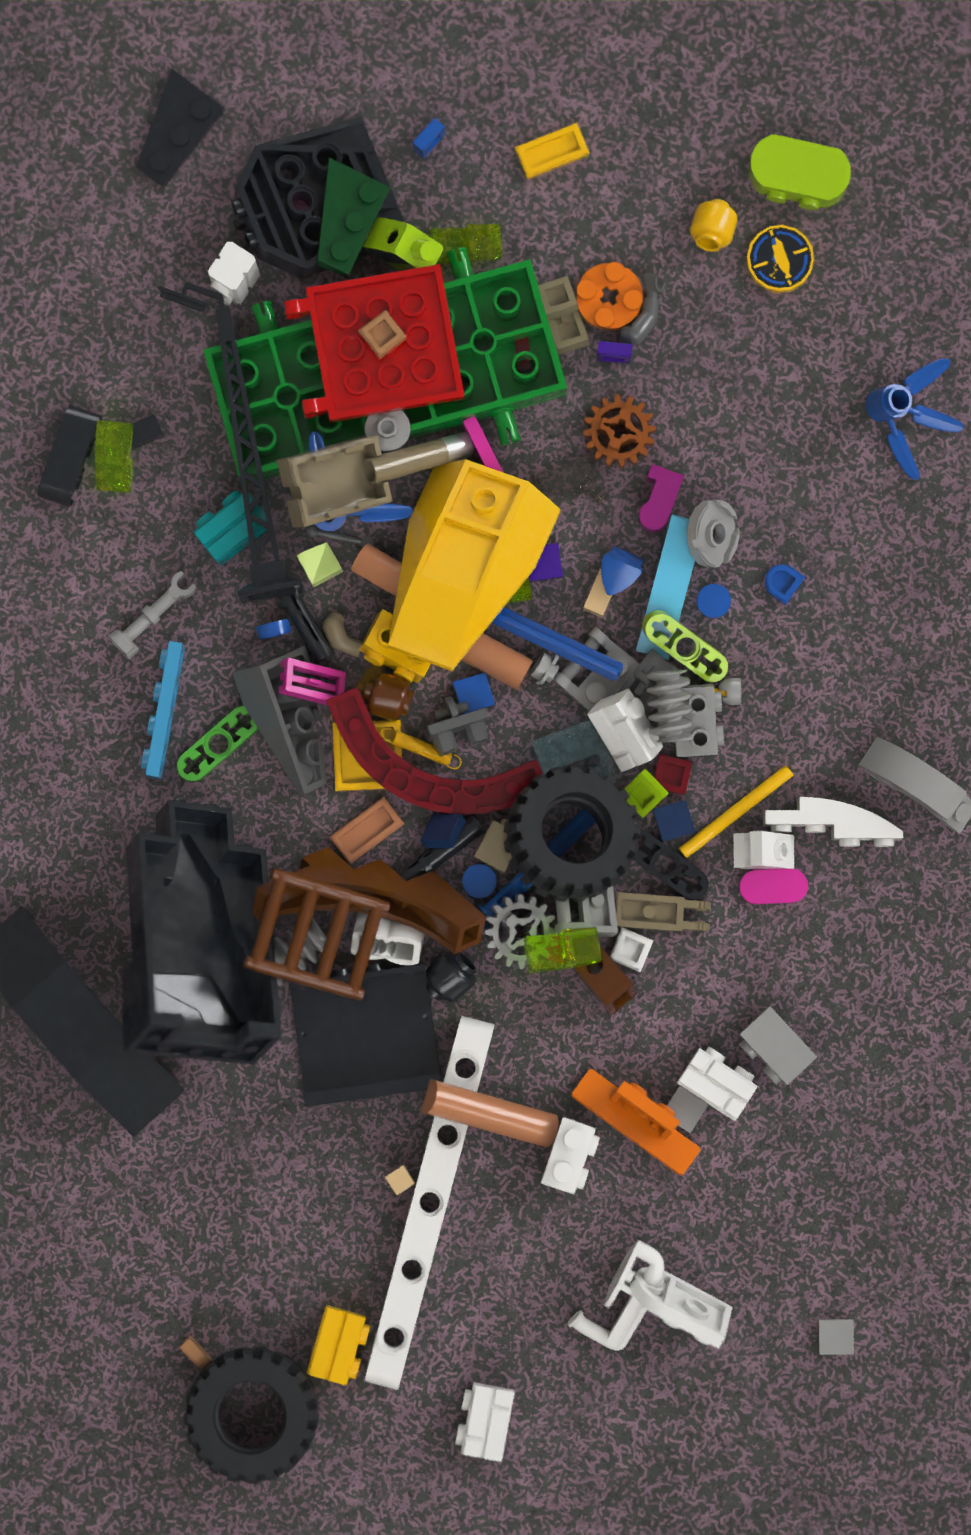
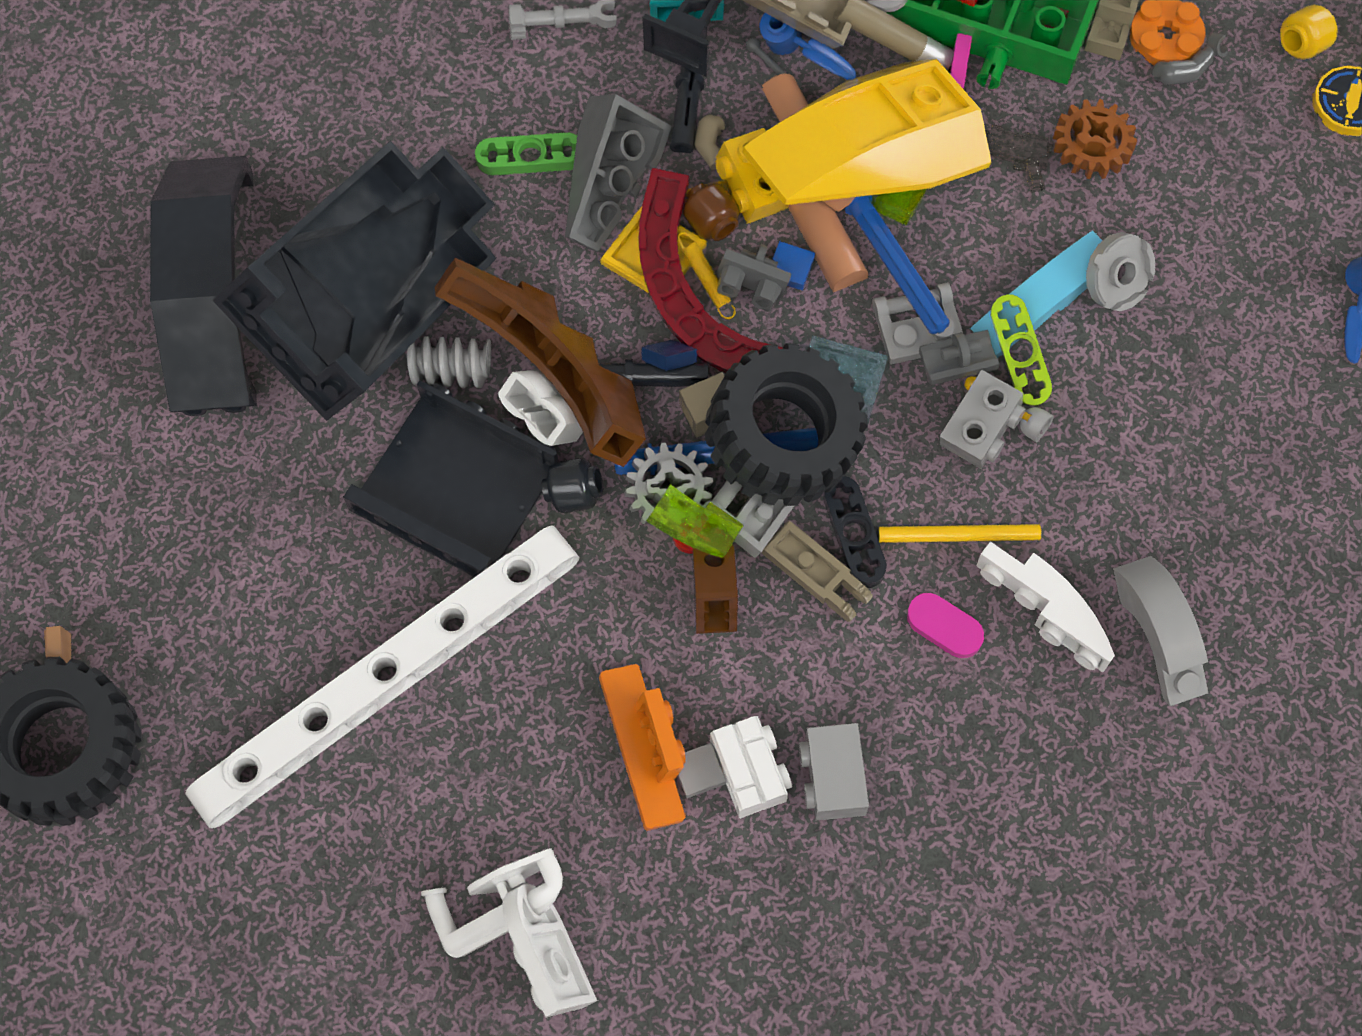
camera: 35 degrees right, 15 degrees down
(165, 695) = (506, 93): dark azure plate -> none
(273, 629) = (654, 93): blue tile -> none
(288, 678) = (642, 152): dark pink tile -> none
(319, 564) = (737, 72): yellowish green slope -> none
(337, 1345) = (190, 742): yellow brick -> none
(344, 899) = (447, 382): reddish brown bar -> none
(366, 830) = (602, 312): nougat tile -> none
(400, 1179) = (374, 629): tan piece -> none
(479, 881) = (667, 425): blue tile -> none
(486, 1421) = (265, 924): white brick -> none
(490, 1113) = (506, 627): nougat brick -> none
(545, 668) = (873, 284): light grey plate -> none
(548, 565) = (941, 203): dark purple tile -> none
(568, 1156) = (552, 726): white brick -> none
(598, 599) = (975, 259): tan piece -> none
(614, 352) = (1139, 73): dark purple tile -> none
(619, 570) = (1006, 246): blue tile -> none
(625, 729) = (908, 379): white brick -> none
(631, 949) = (762, 585): white tile -> none
(645, 793) = (883, 453): lime tile -> none
(656, 512) = (1100, 213): magenta leg -> none
(670, 706) = (966, 371): light grey piece -> none
(673, 773) = (922, 458): dark red tile -> none
(673, 821) = (892, 499): dark blue tile -> none
(713, 601) = (1076, 337): blue tile -> none
(763, 850) = (961, 579): white brick -> none
(782, 582) = (1156, 365): blue tile -> none

